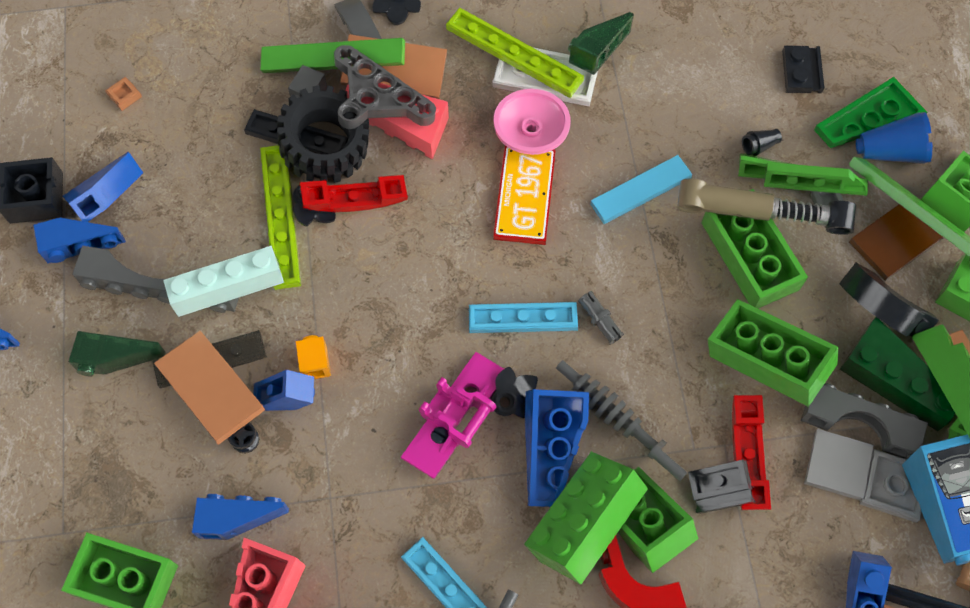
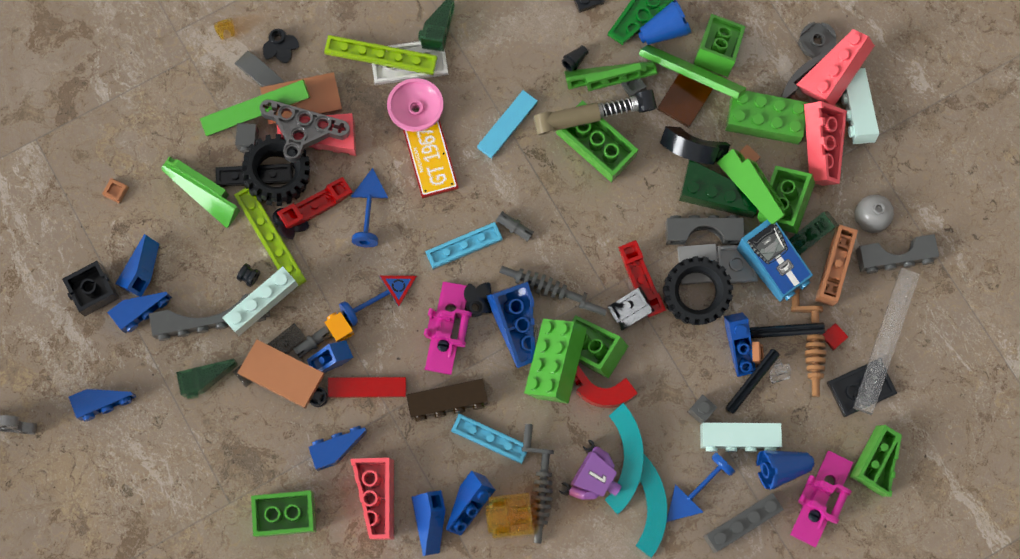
camera: 25 degrees left, 10 degrees up
(226, 131) = (203, 190): none -> bright green wedge
(228, 246) = (248, 275): none -> black wheel
(269, 363) = (312, 342): none -> dark grey pin
(315, 451) = (366, 387): none -> red tile
(412, 338) = (397, 286): none -> blue piece
(414, 511) = (447, 399): none -> dark brown brick
(431, 202) = (369, 189): none -> blue piece
(773, 352) = (632, 209): bright green brick -> none
(860, 483) = (715, 273): none -> black tyre

